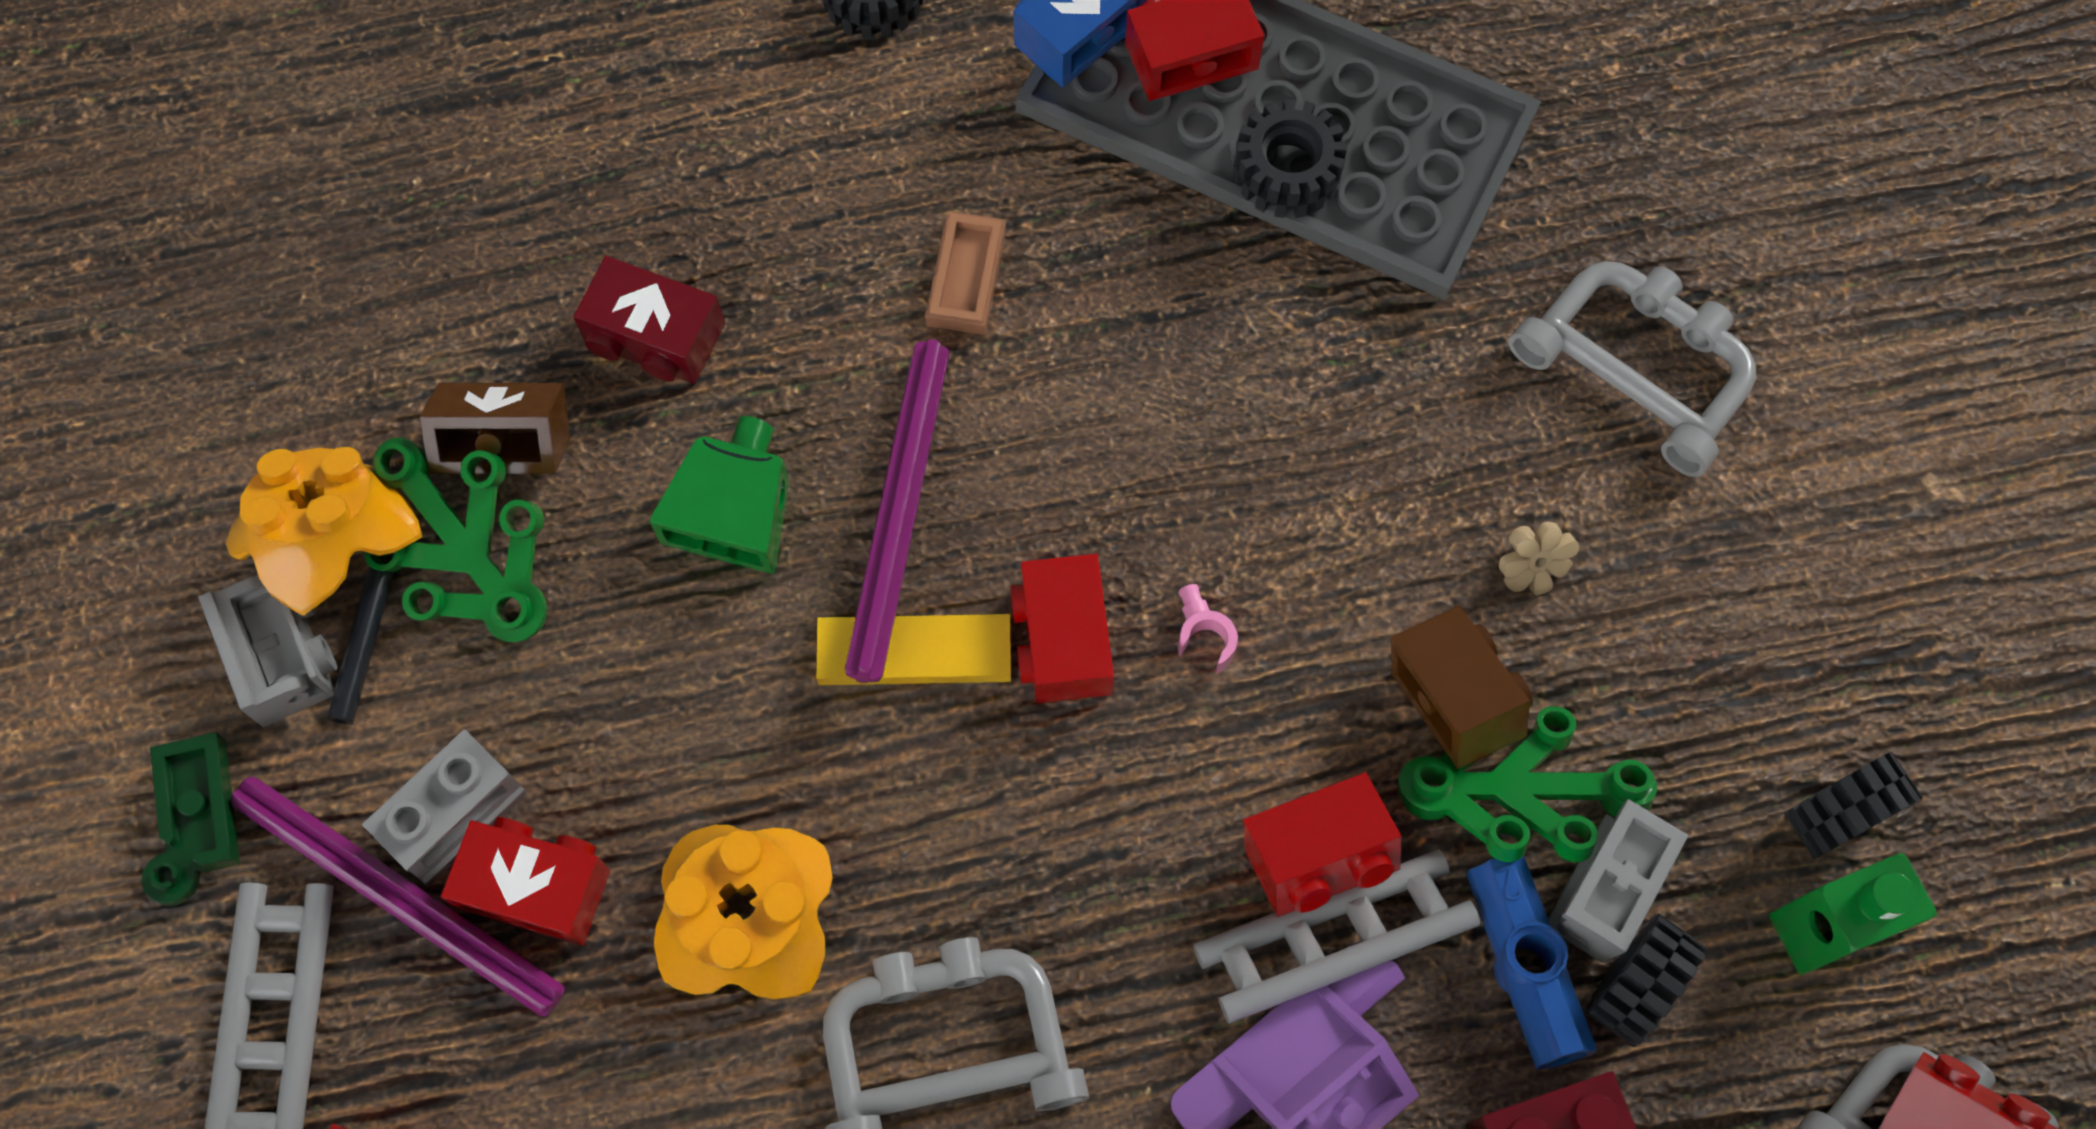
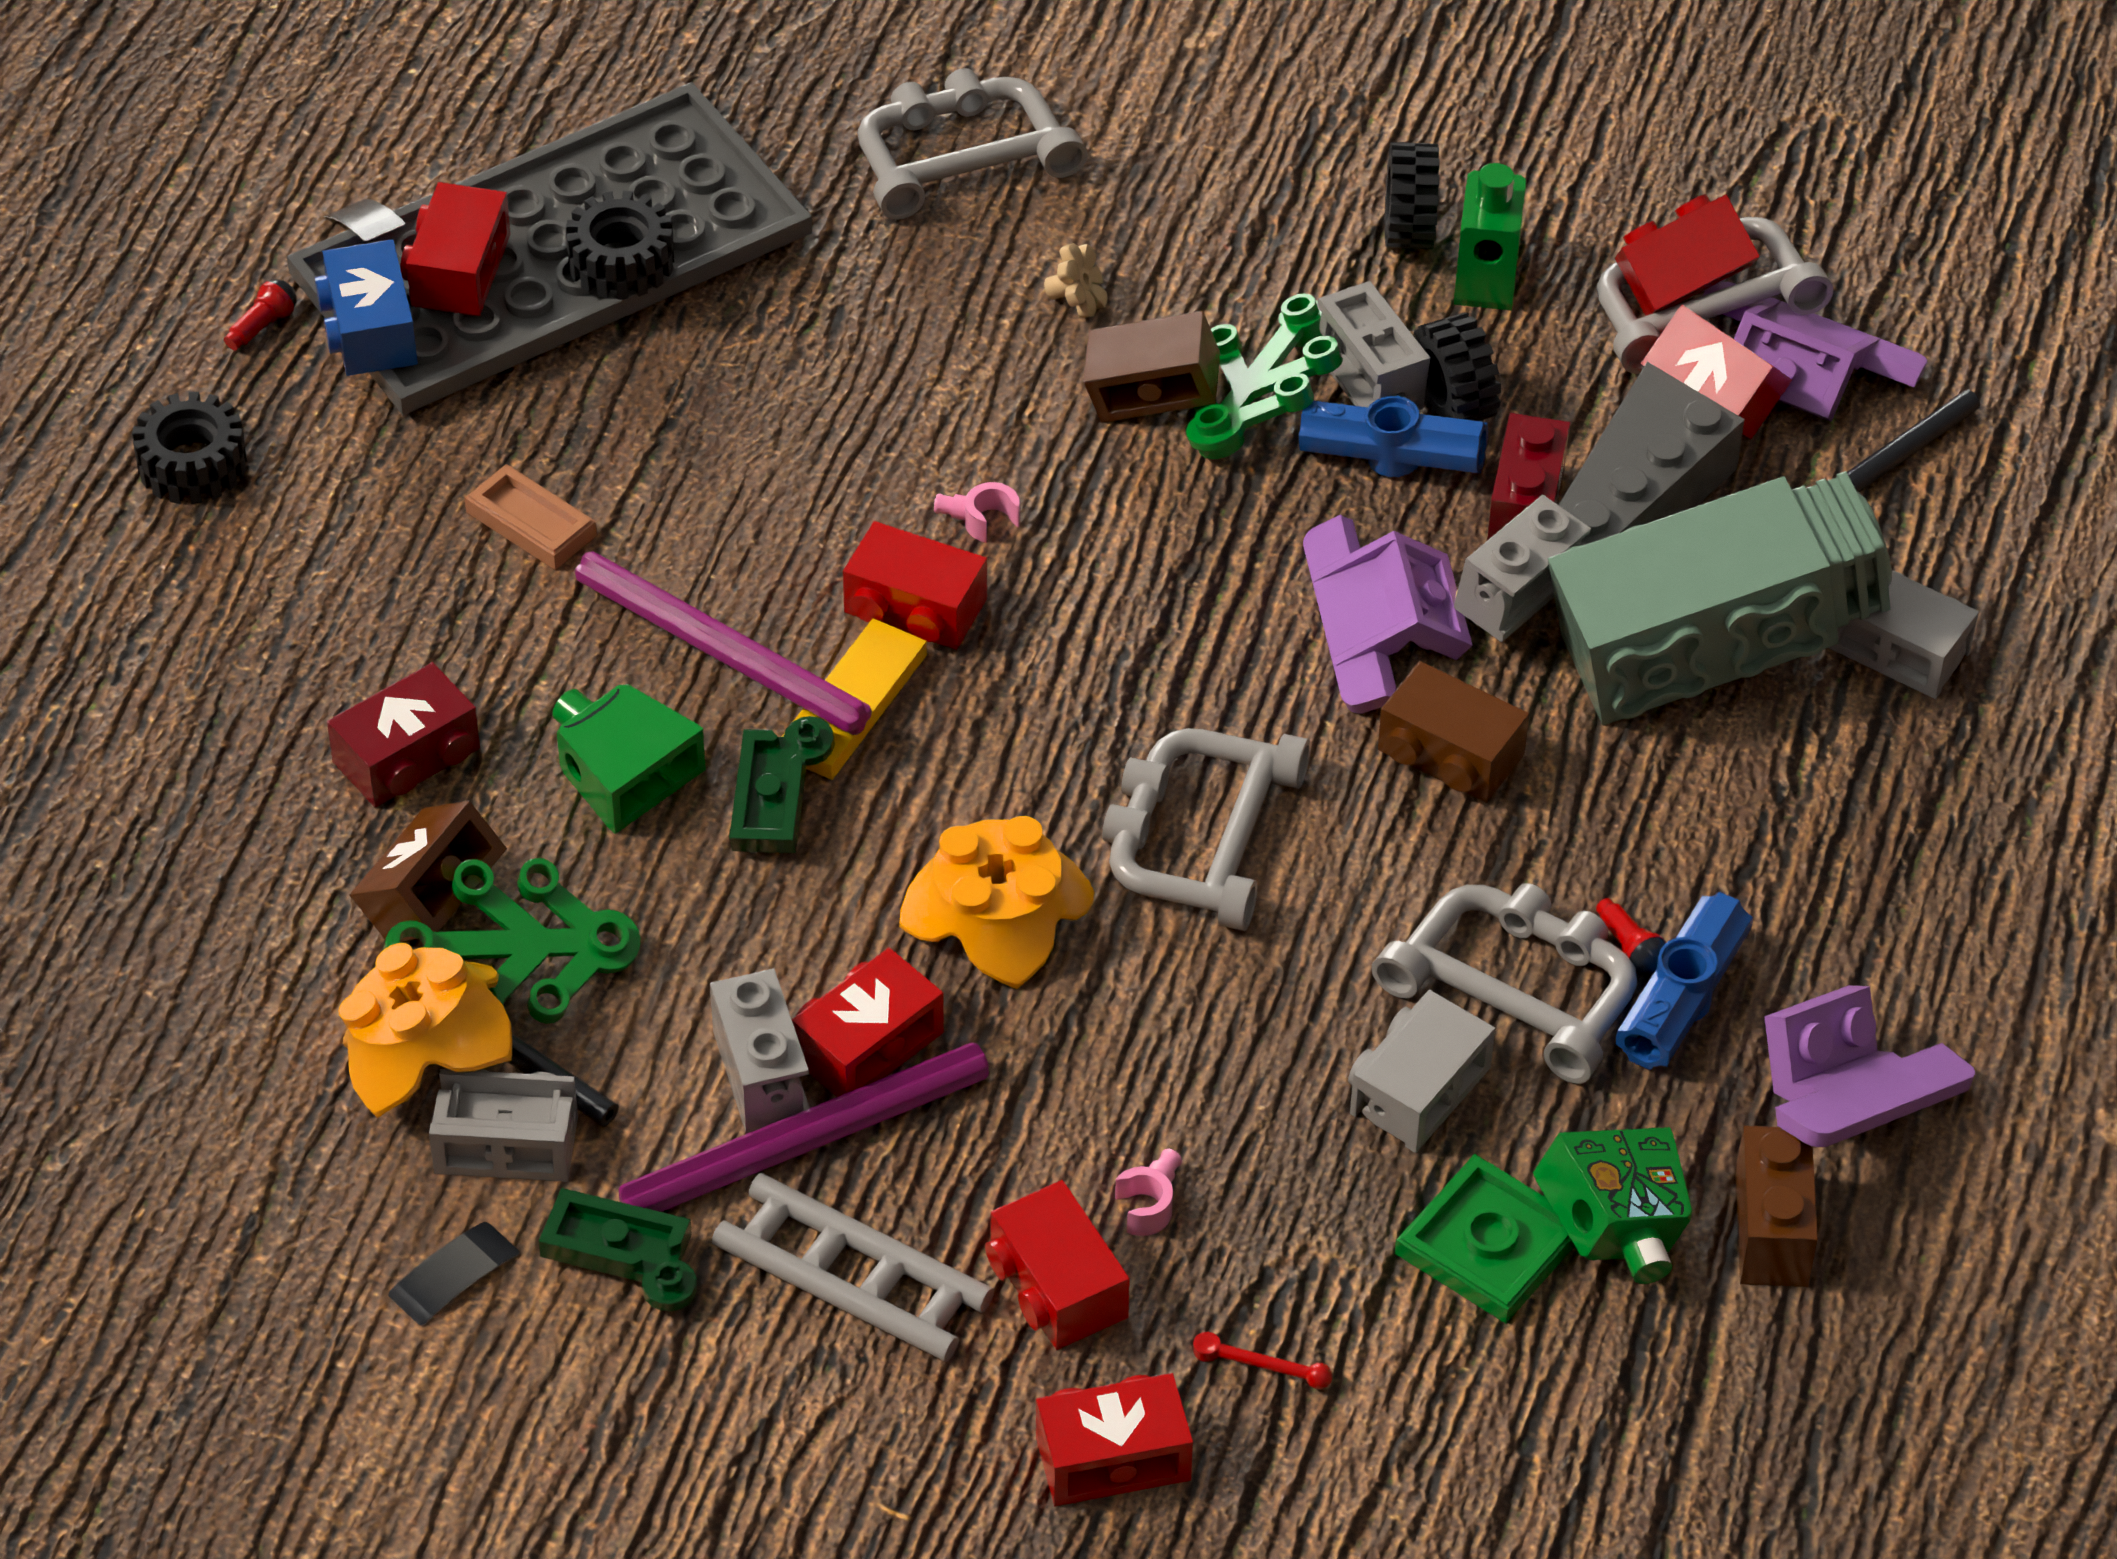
camera: 60 degrees left, 20 degrees down
(123, 693) = (451, 1271): none -> black sticker
(761, 643) = (773, 784): none -> dark green hinge
(1319, 970) = (1307, 563): light grey bar -> none
(1322, 845) = (1216, 508): red brick -> none

